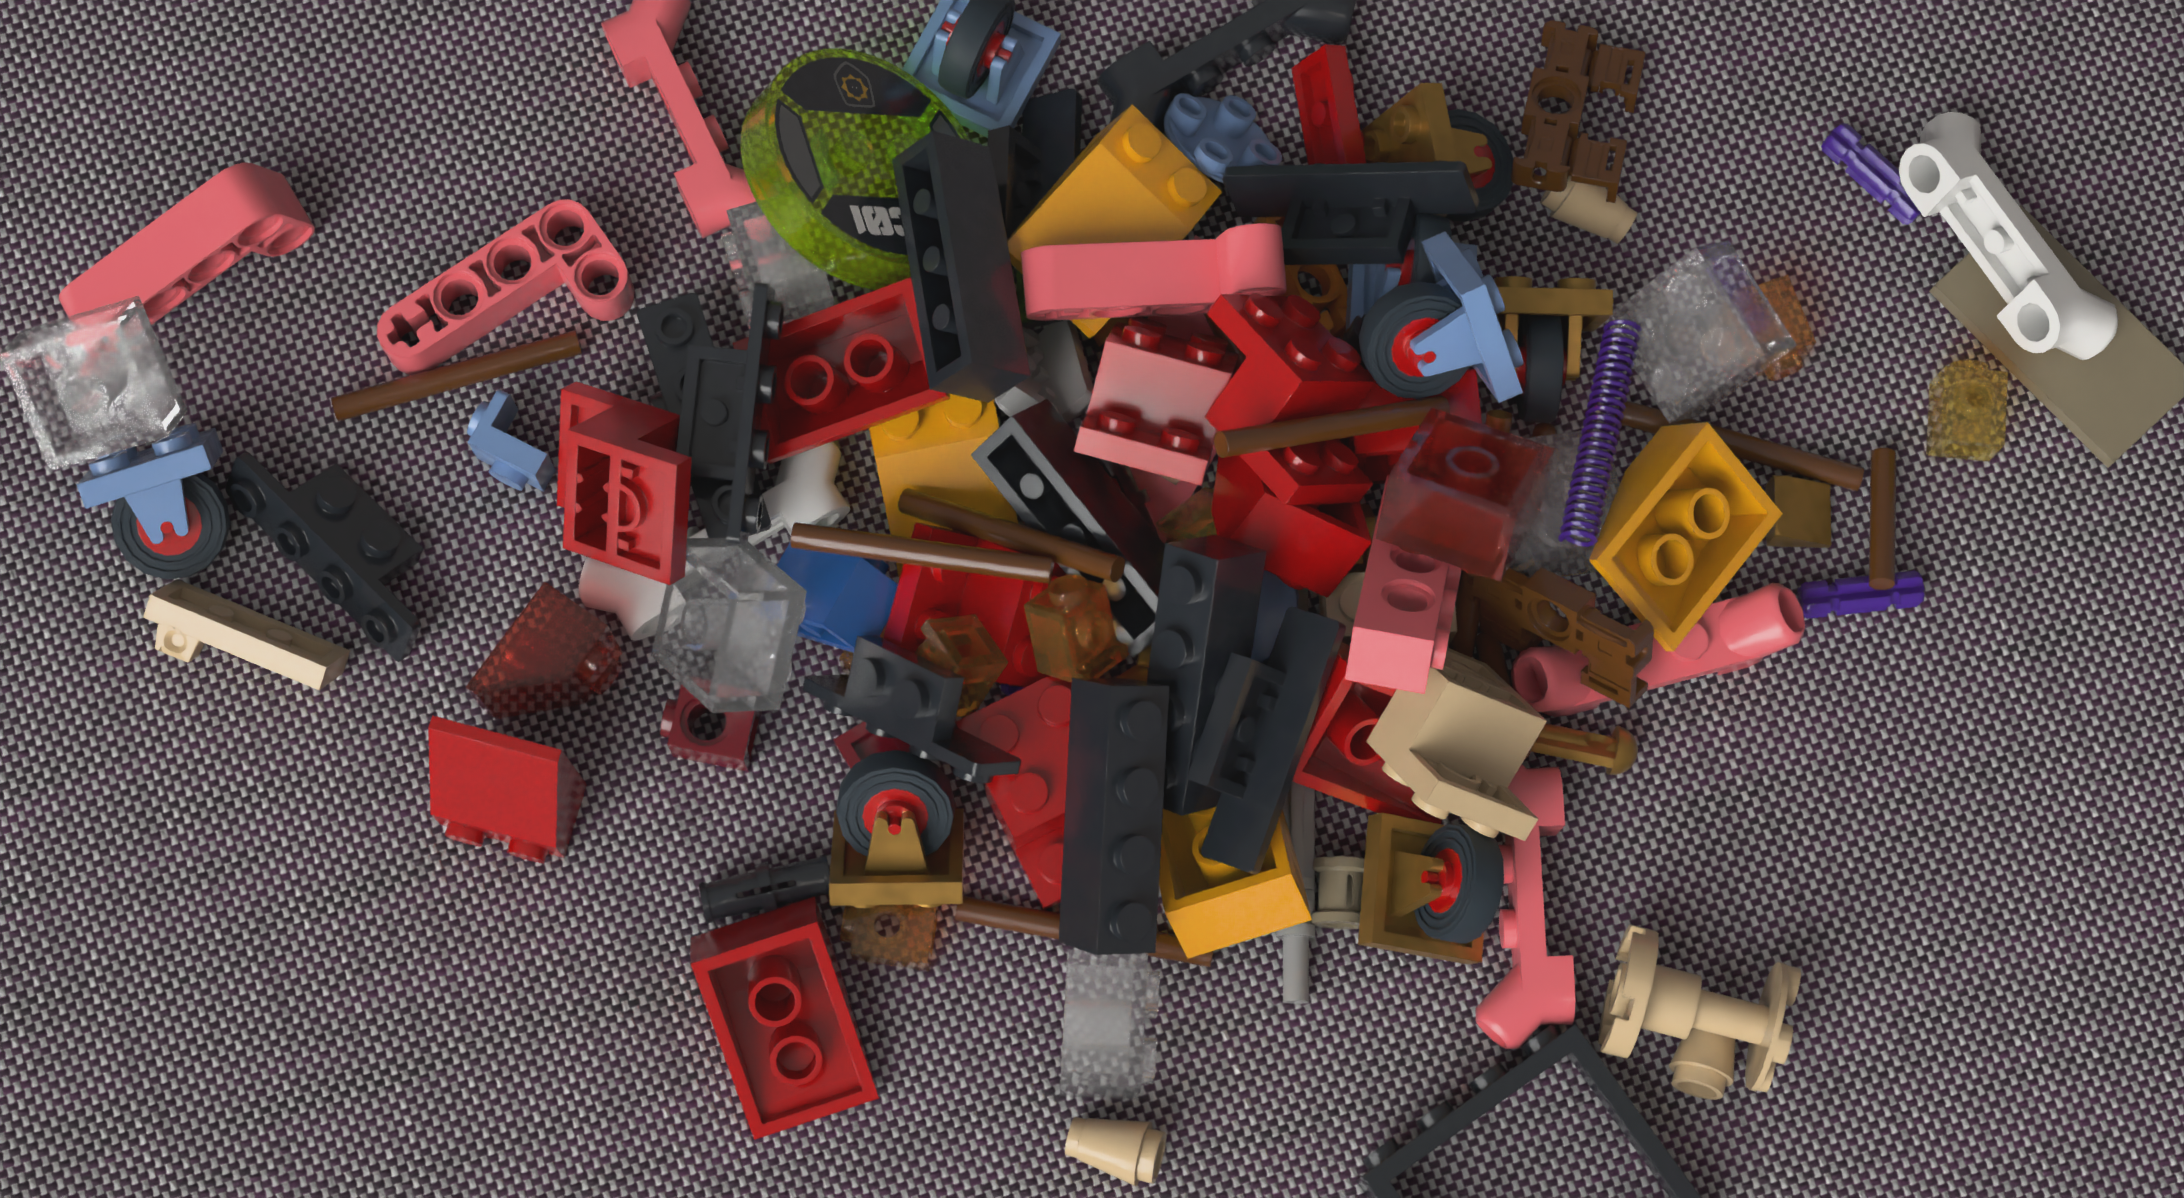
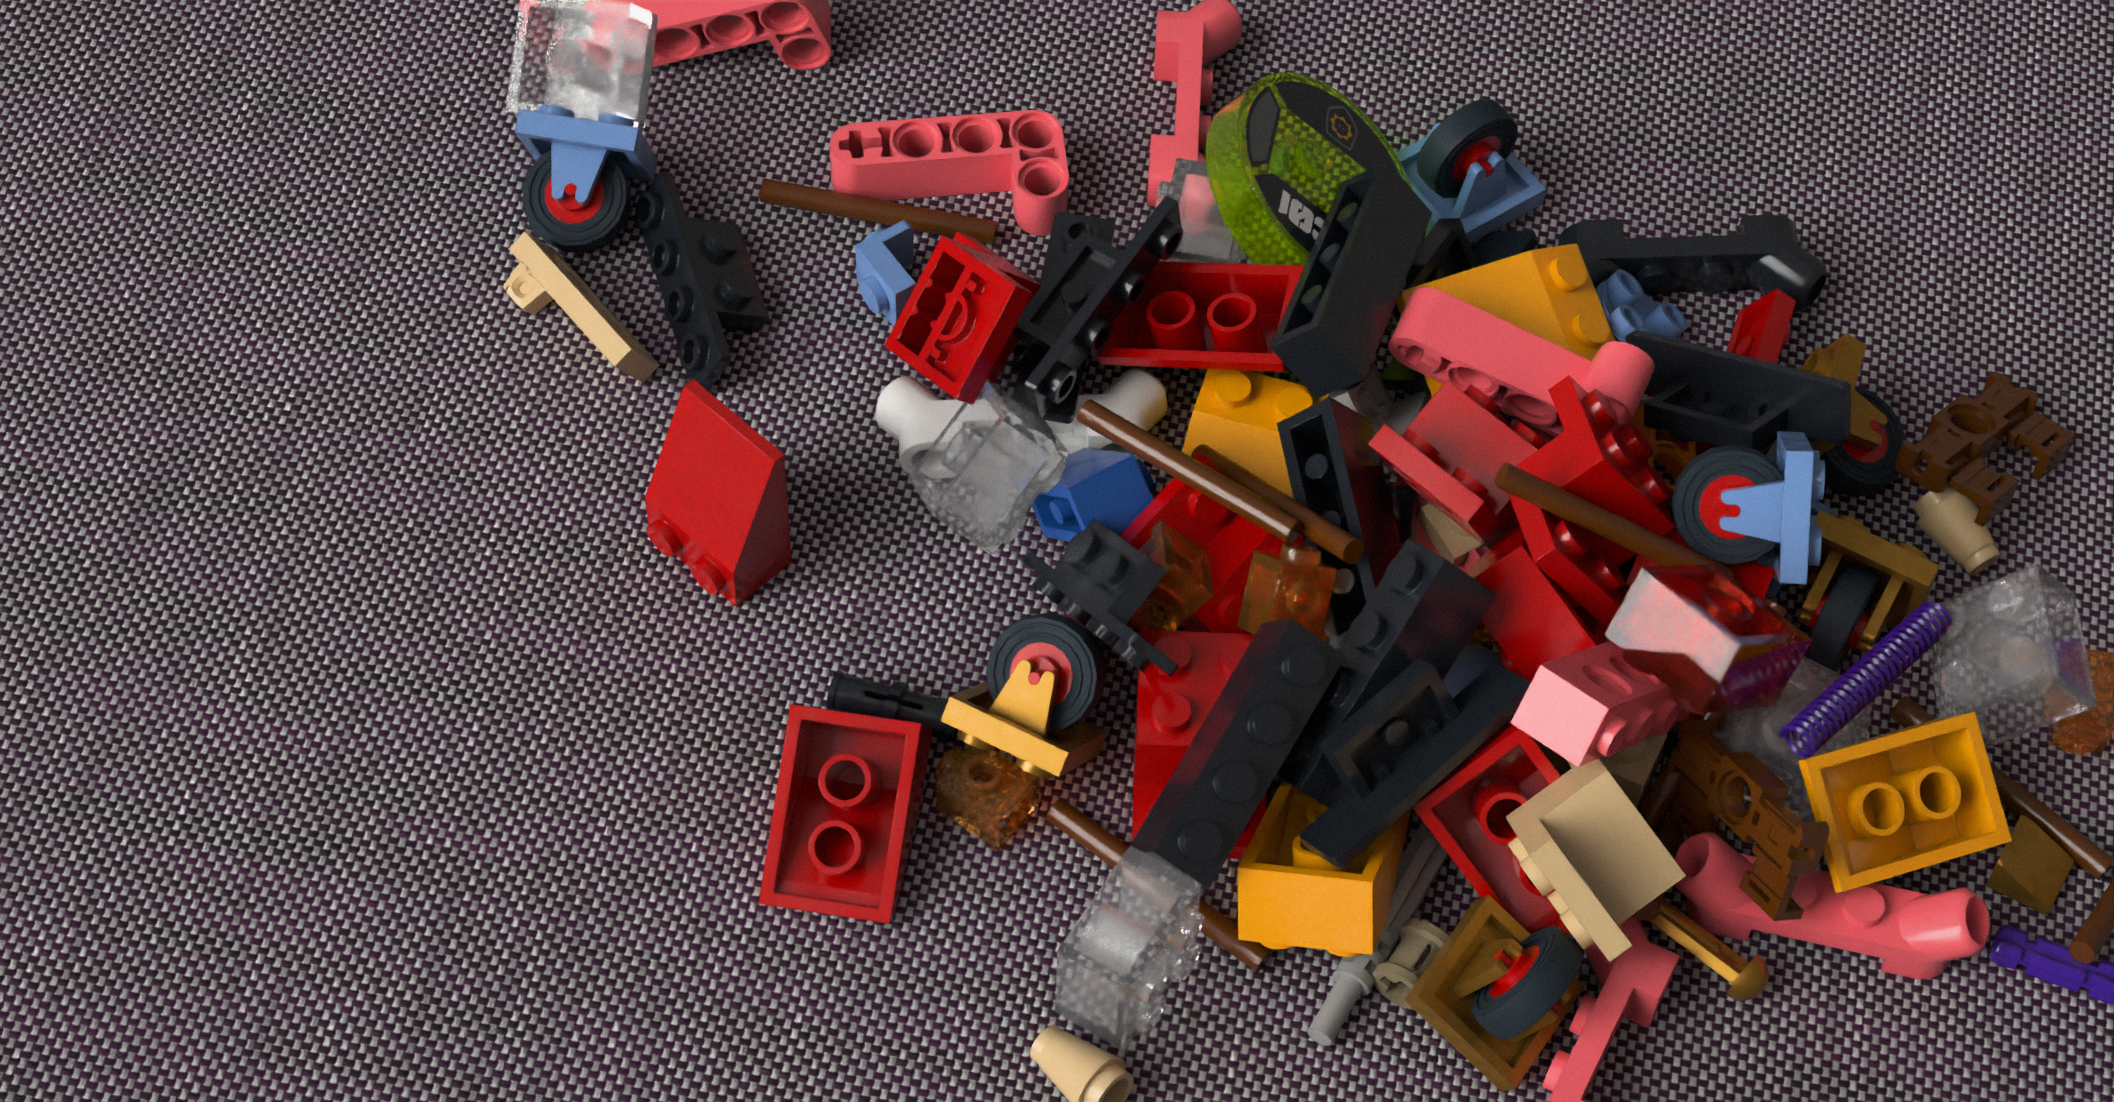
camera: 30 degrees right, 20 degrees down
(547, 659) = (824, 425): clear red slope -> none
(730, 749) = (932, 581): dark red brick -> none

